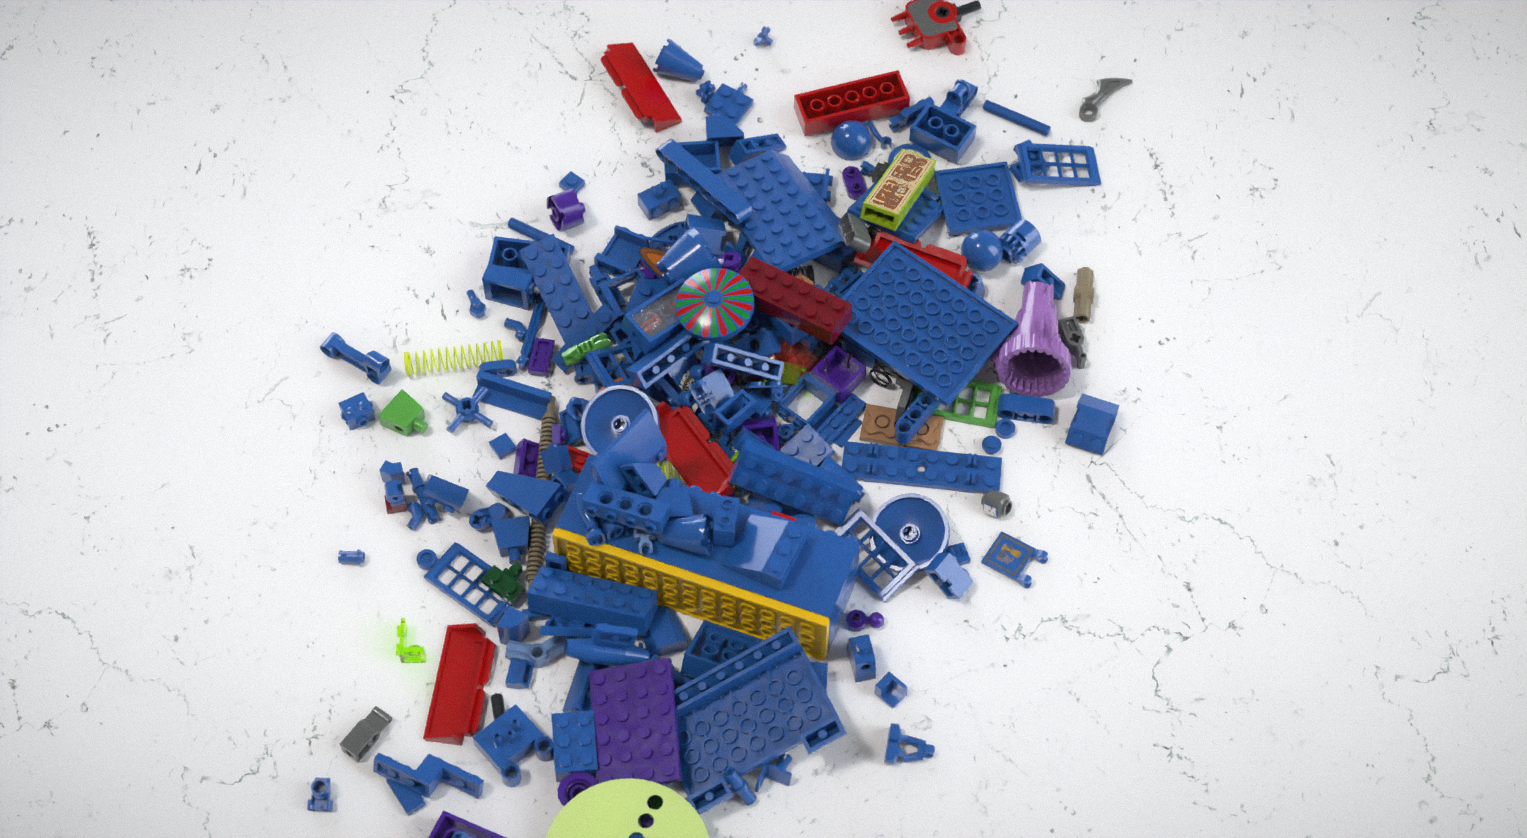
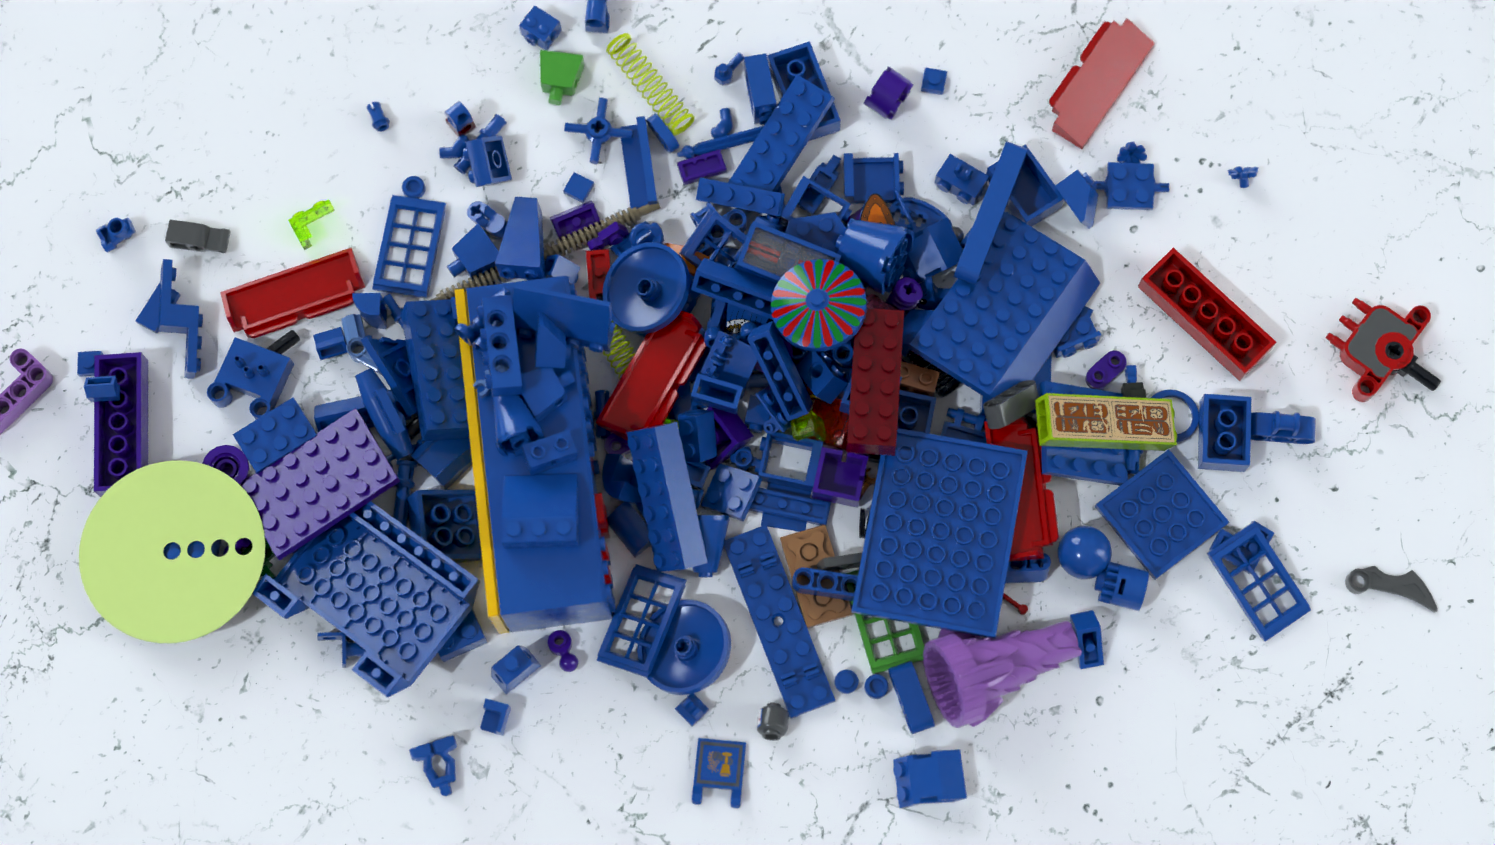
camera: 65 degrees right, 15 degrees up
(392, 471) = (486, 101): blue piece -> none
(505, 582) = (420, 275): dark green hinge -> none
(533, 232) = (848, 87): blue axle -> none
(556, 458) = (580, 247): blue brick -> none
(578, 352) = (723, 206): bright green hinge -> none
(678, 63) = (1149, 103): blue cone -> none
(739, 786) = (307, 619): blue pin -> none
(750, 147) = (1087, 245): blue slope -> none
(851, 140) = (1159, 339): blue piece -> none
(883, 140) = (1186, 362): blue piece -> none
(909, 114) = (1232, 385): blue plate -> none
(949, 574) = (652, 710): brick -> none
(1016, 117) = (1301, 504): blue axle -> none
(1073, 339) = (1028, 700): dark grey piece -> none
(1083, 294) = (1096, 691): dark tan piece -> none

